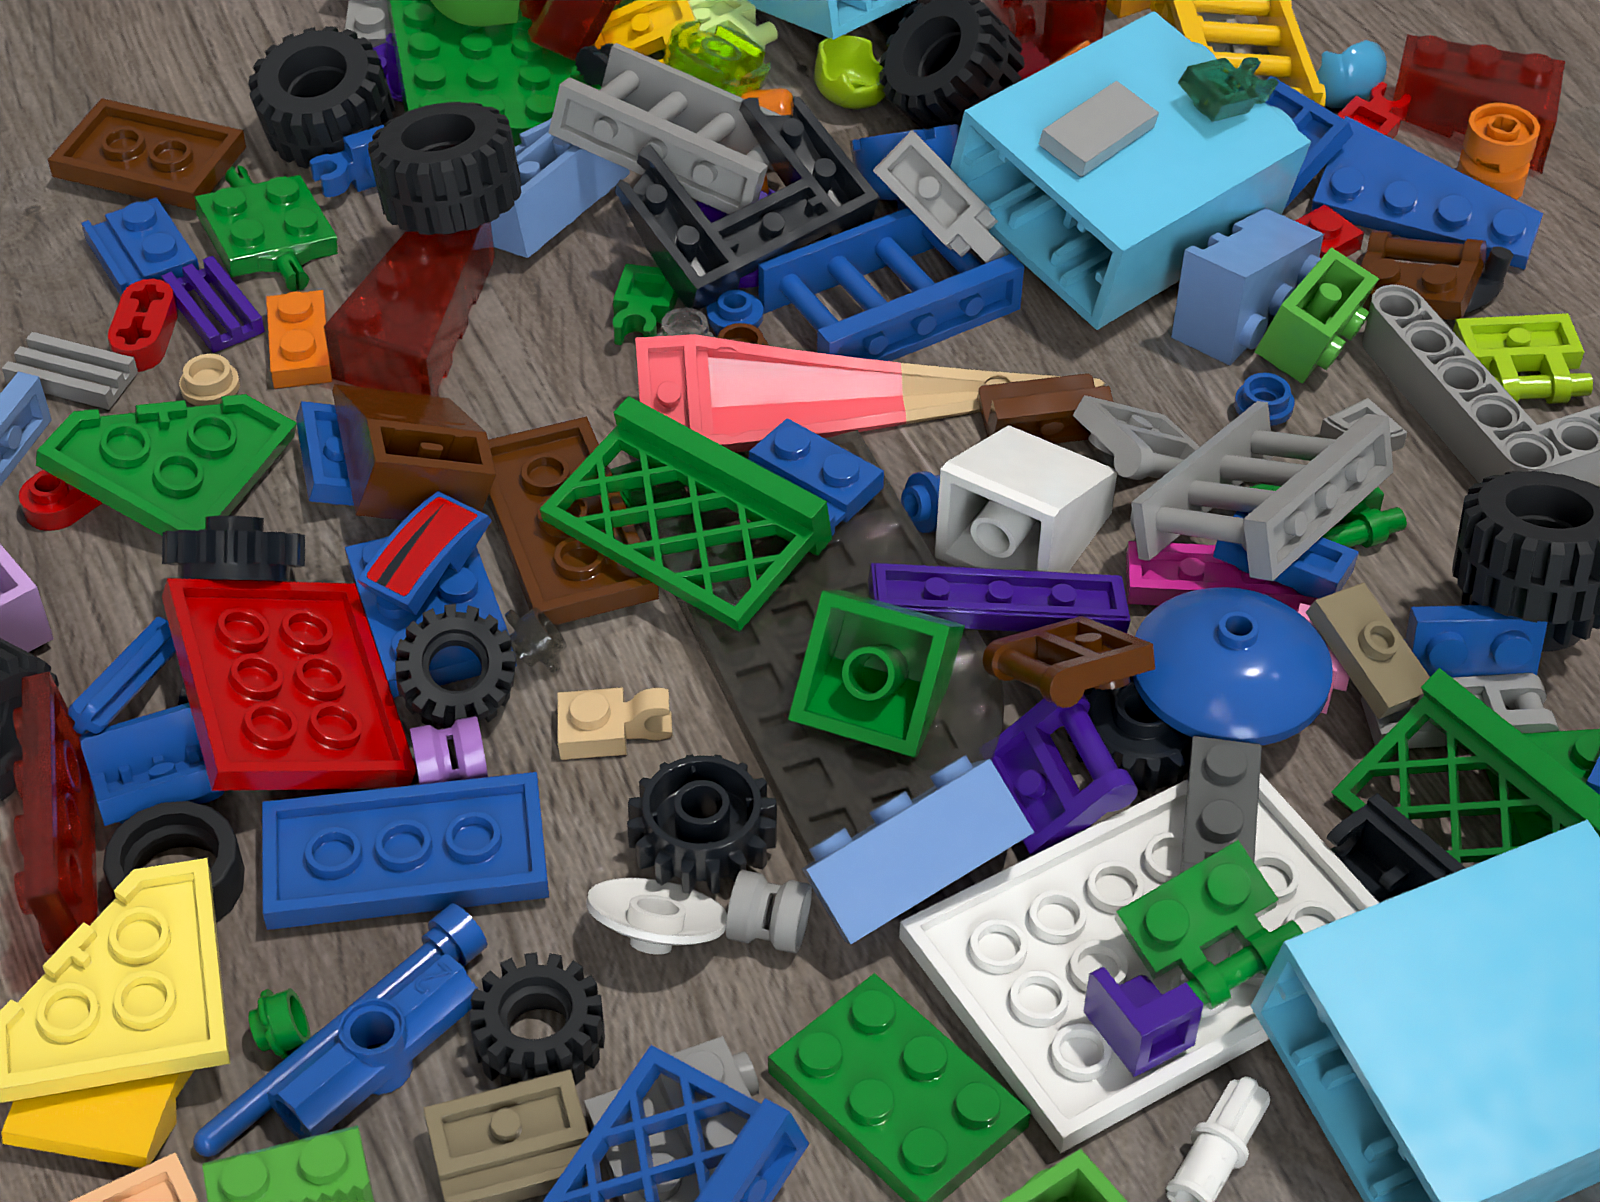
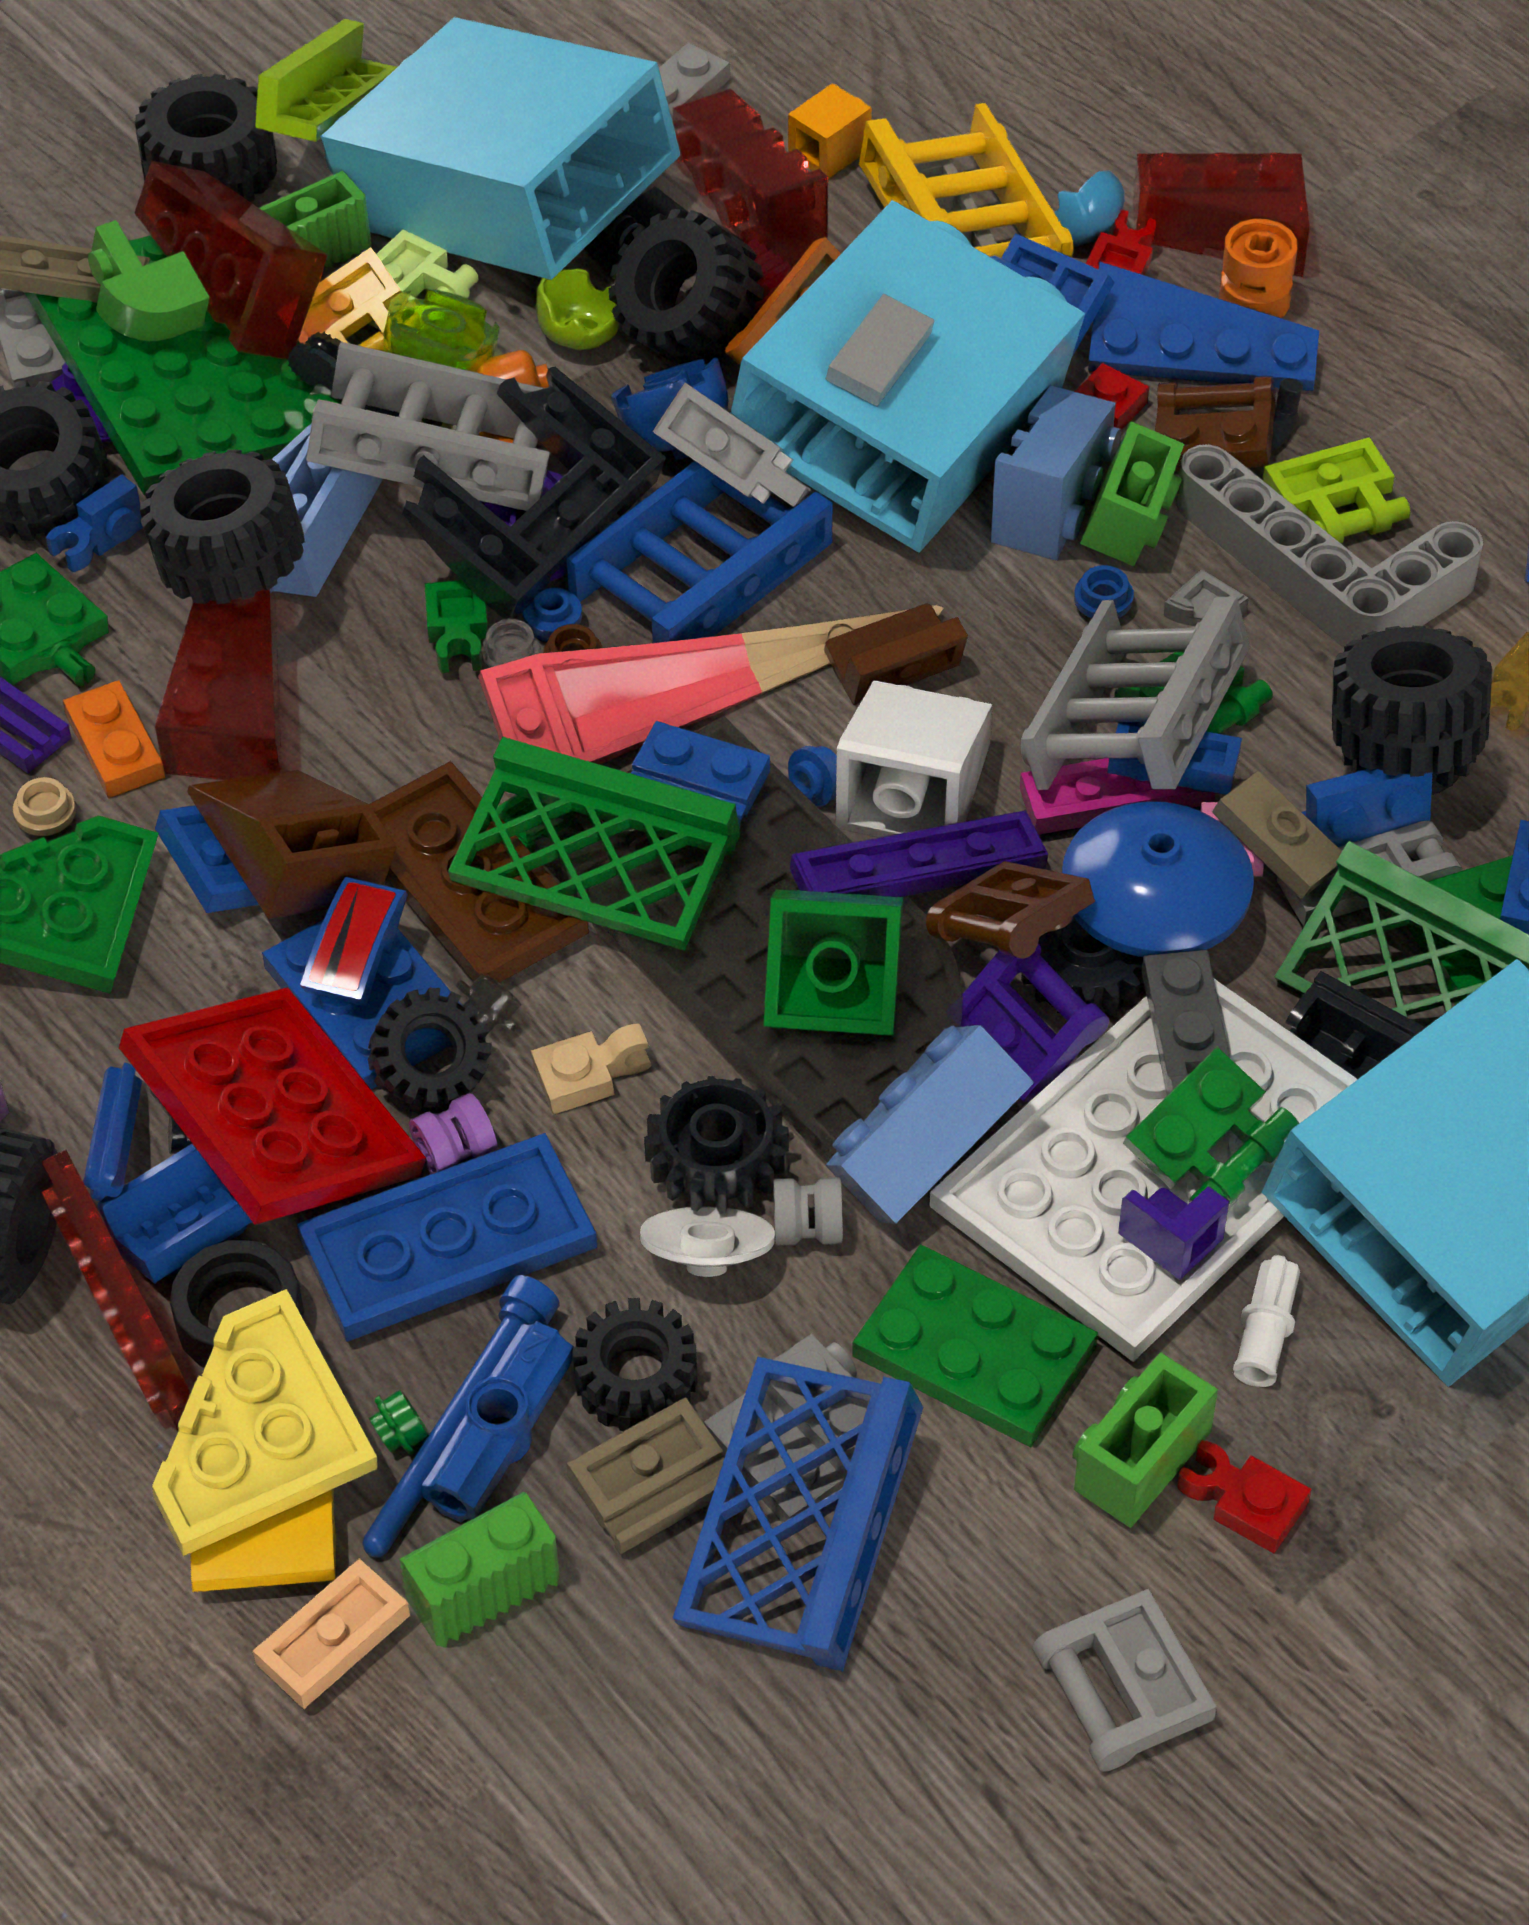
camera: 15 degrees left, 5 degrees up
(233, 550) = (165, 985): black gear -> none
(1137, 438) = (1001, 663): light grey plate -> none
(1223, 90) = (990, 278): clear green plate -> none

